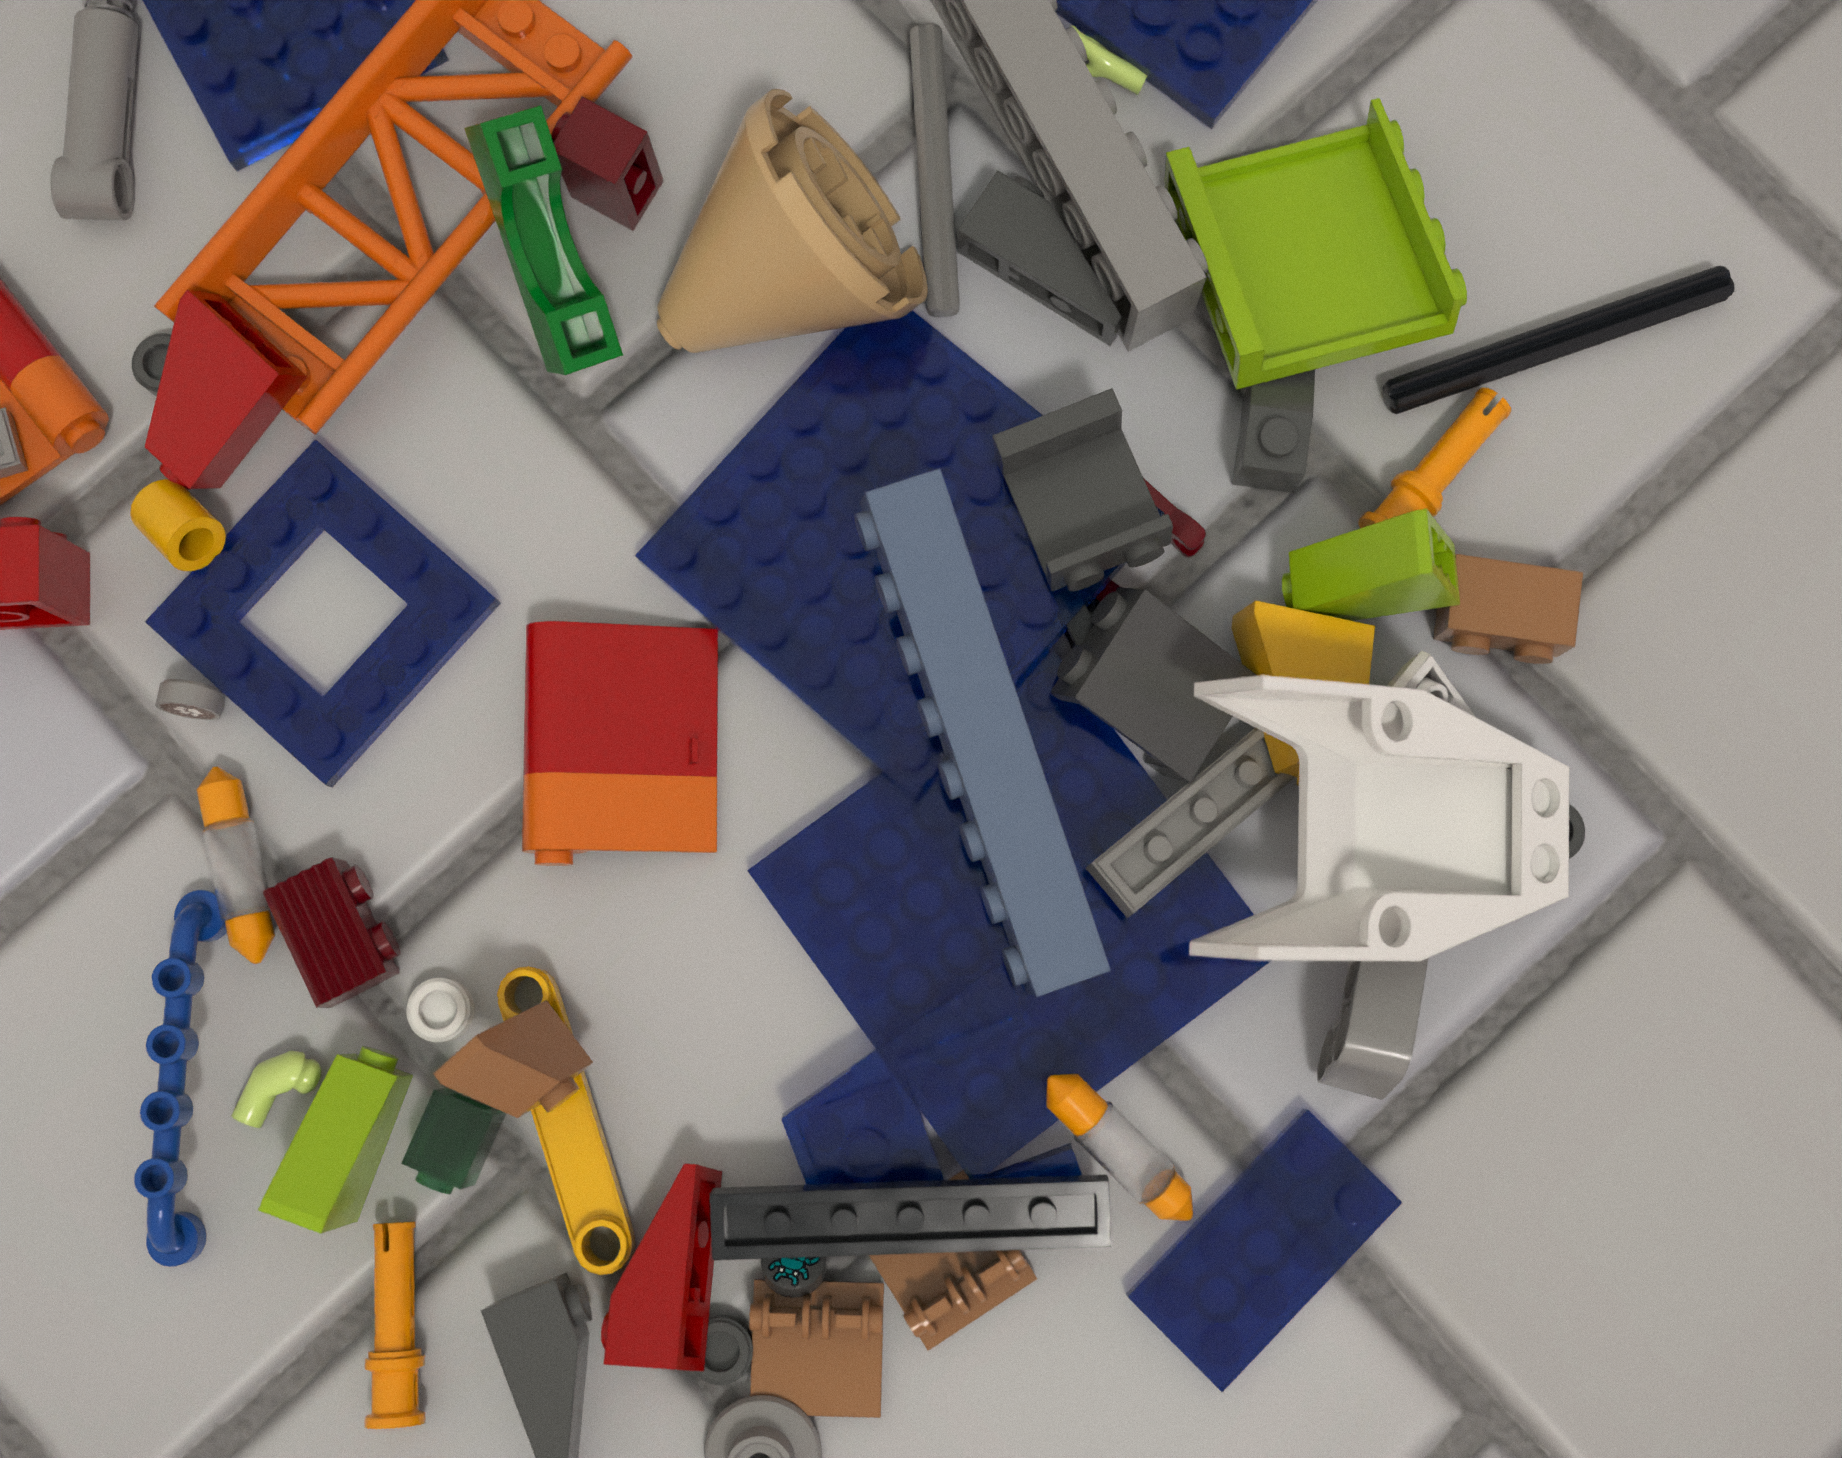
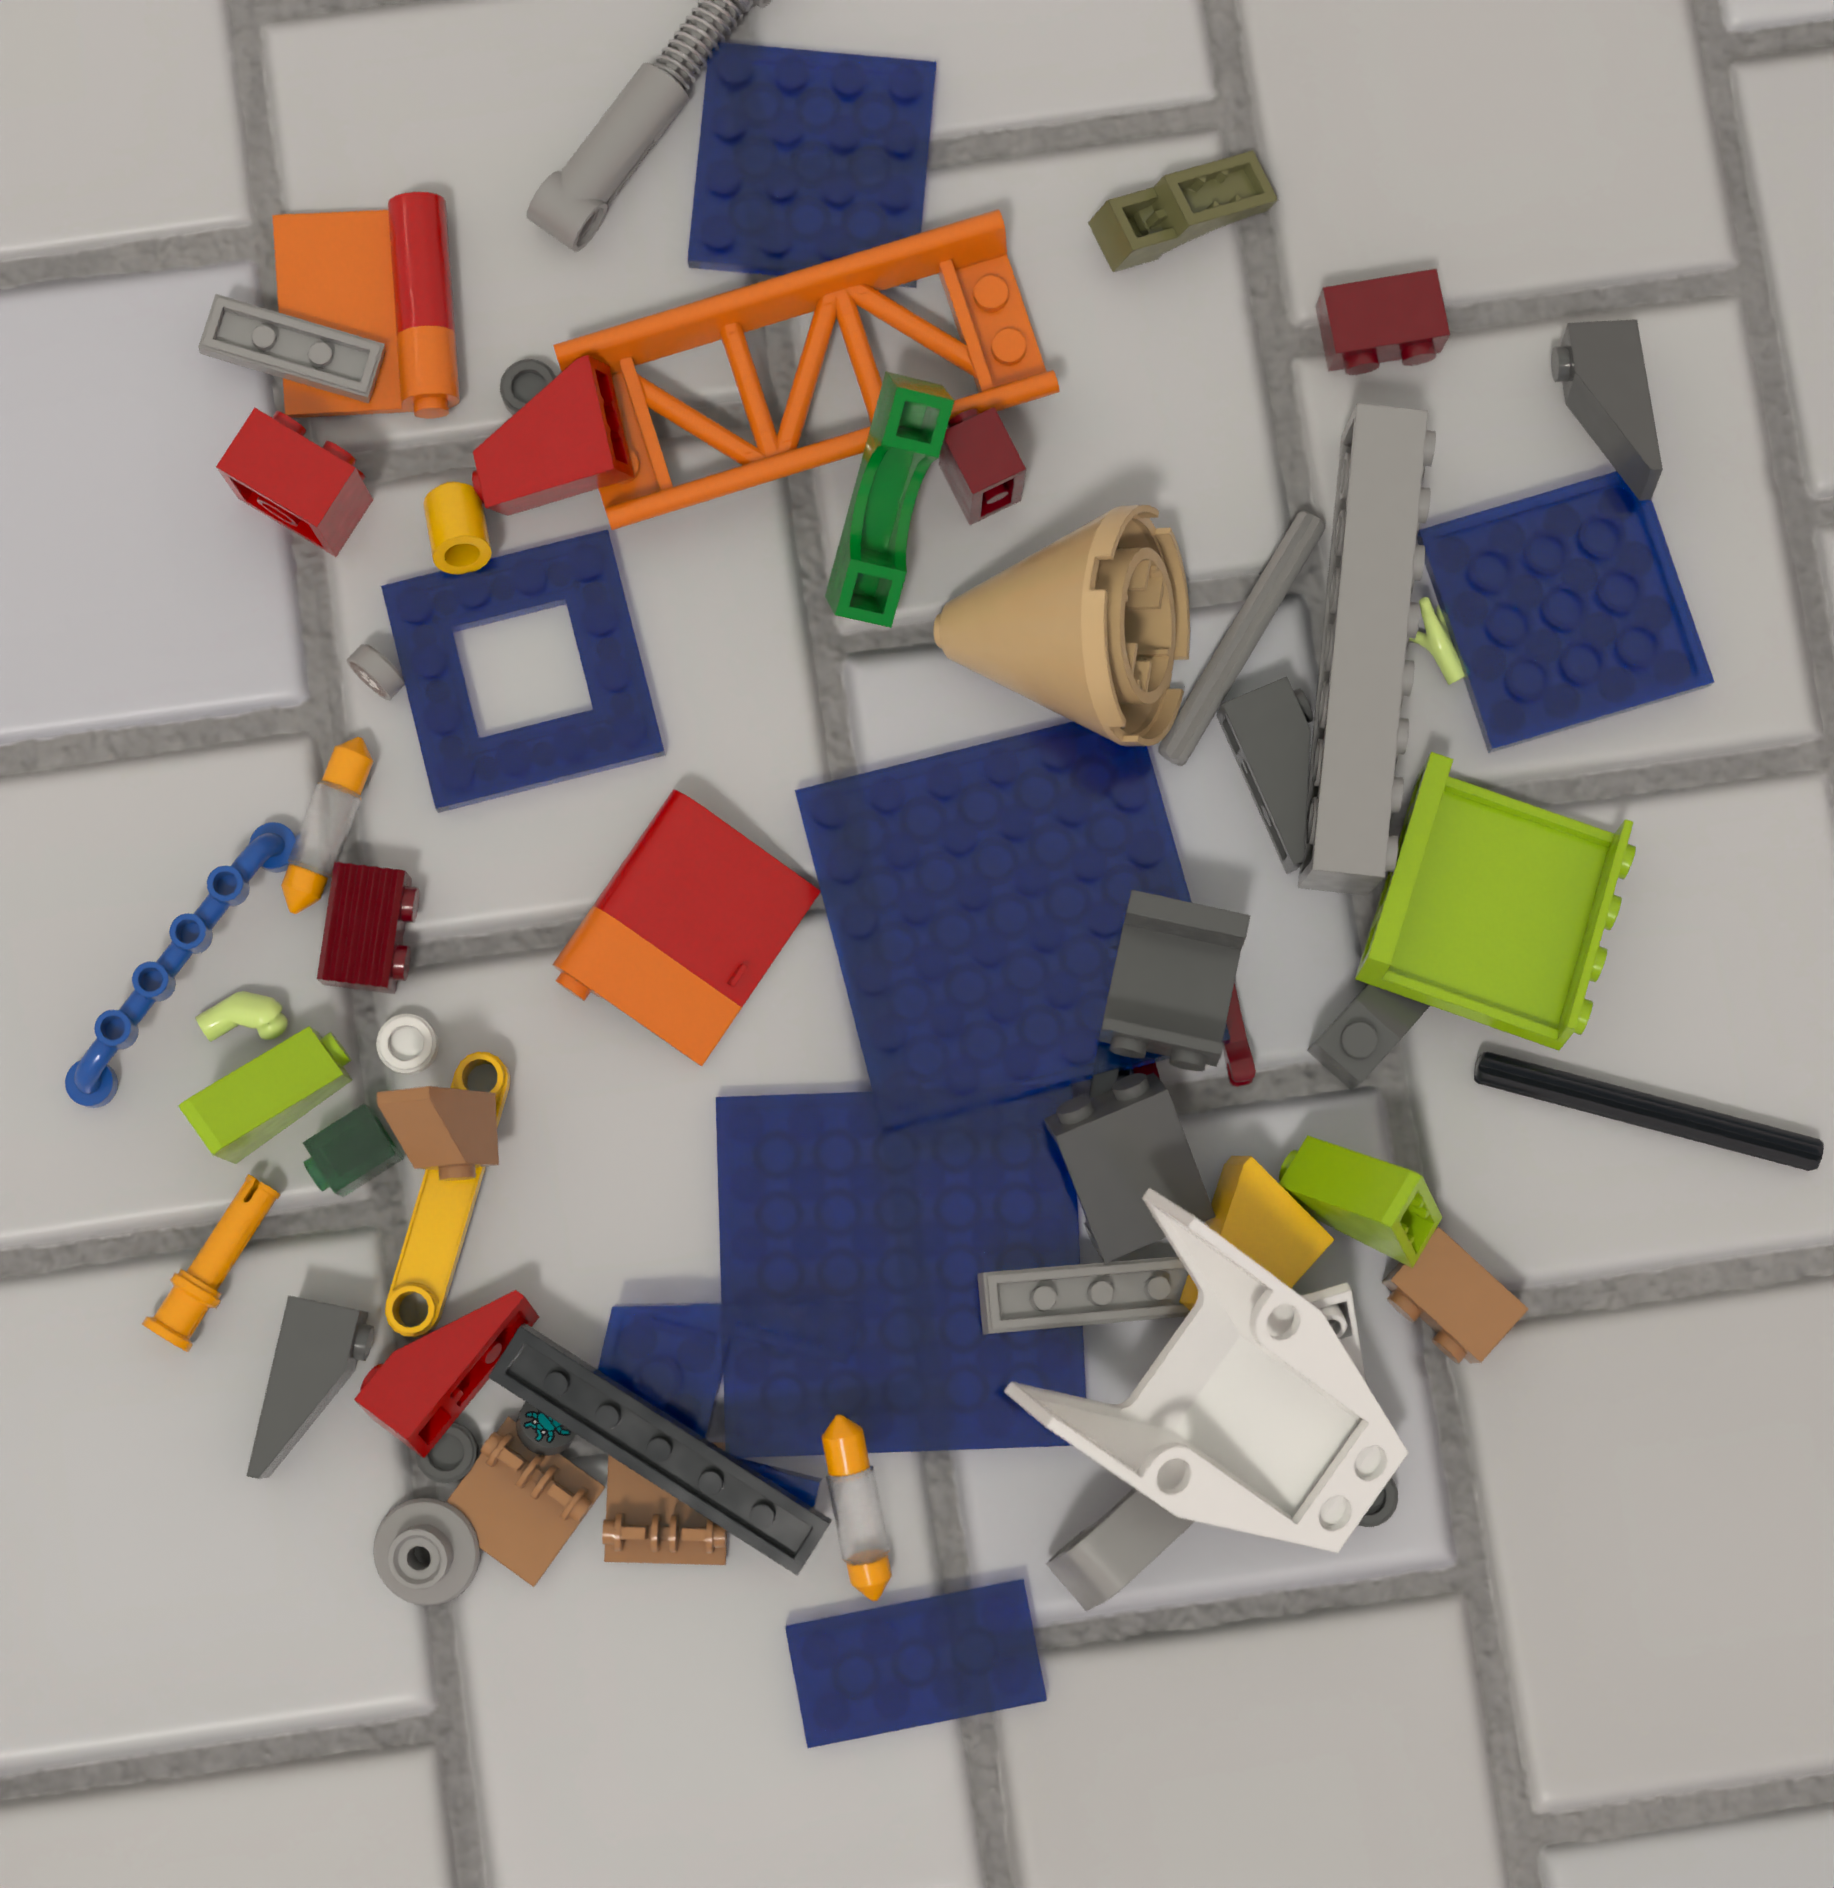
camera: 25 degrees right, 0 degrees up
(982, 734) = (965, 1117): sand blue brick -> none
(1439, 467) = (1448, 1157): light orange pin -> none

